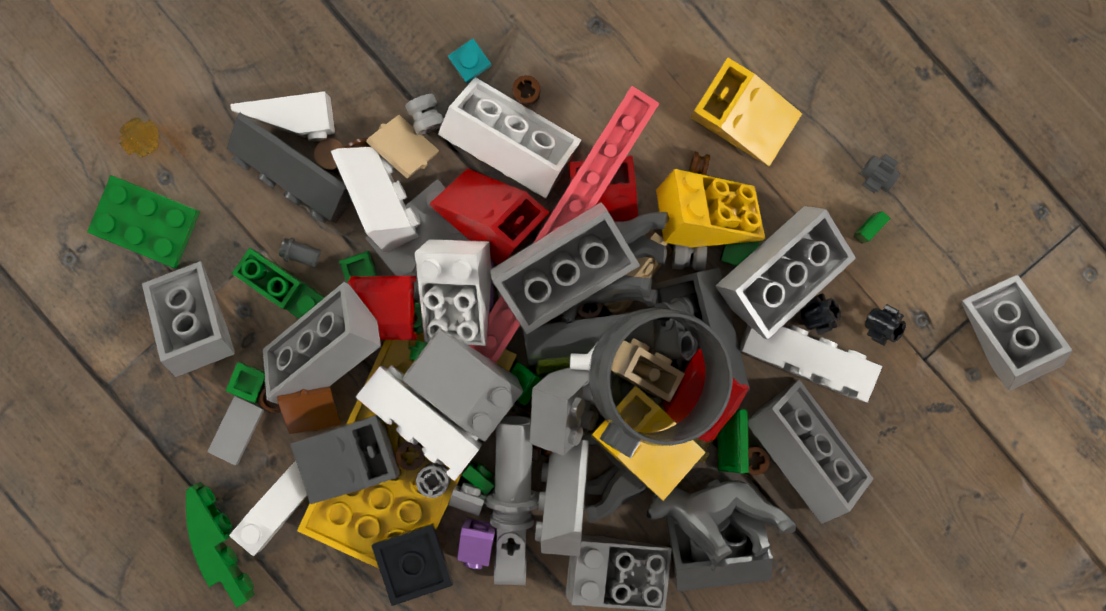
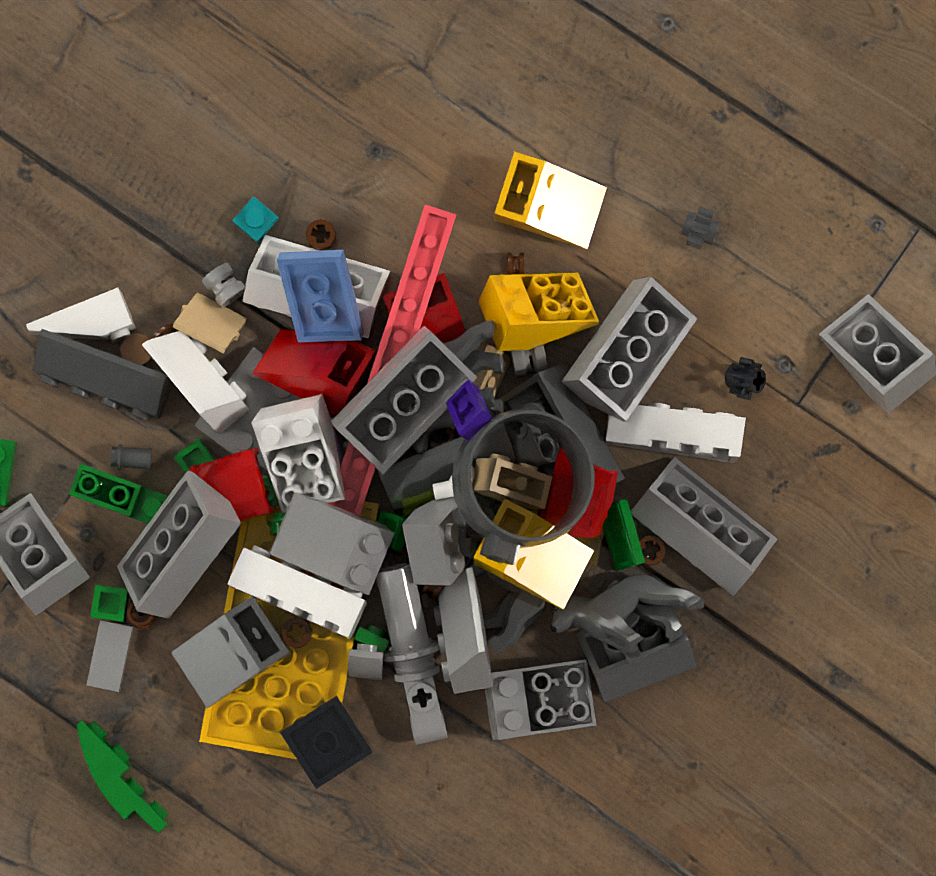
camera: 15 degrees left, 5 degrees down
(270, 512) = (169, 726): white slope -> none
(309, 410) = (181, 613): dark orange piece -> none
(437, 478) = (326, 650): light grey wheel -> none
(476, 543) = (386, 707): medium lavender slope -> none
(510, 147) = (320, 295): none -> medium blue plate
(624, 297) = (468, 410): none -> dark purple plate
(737, 252) = (575, 343): green tile -> none
(821, 314) = (677, 384): black gear -> none
(871, 227) = (705, 283): green tile -> none

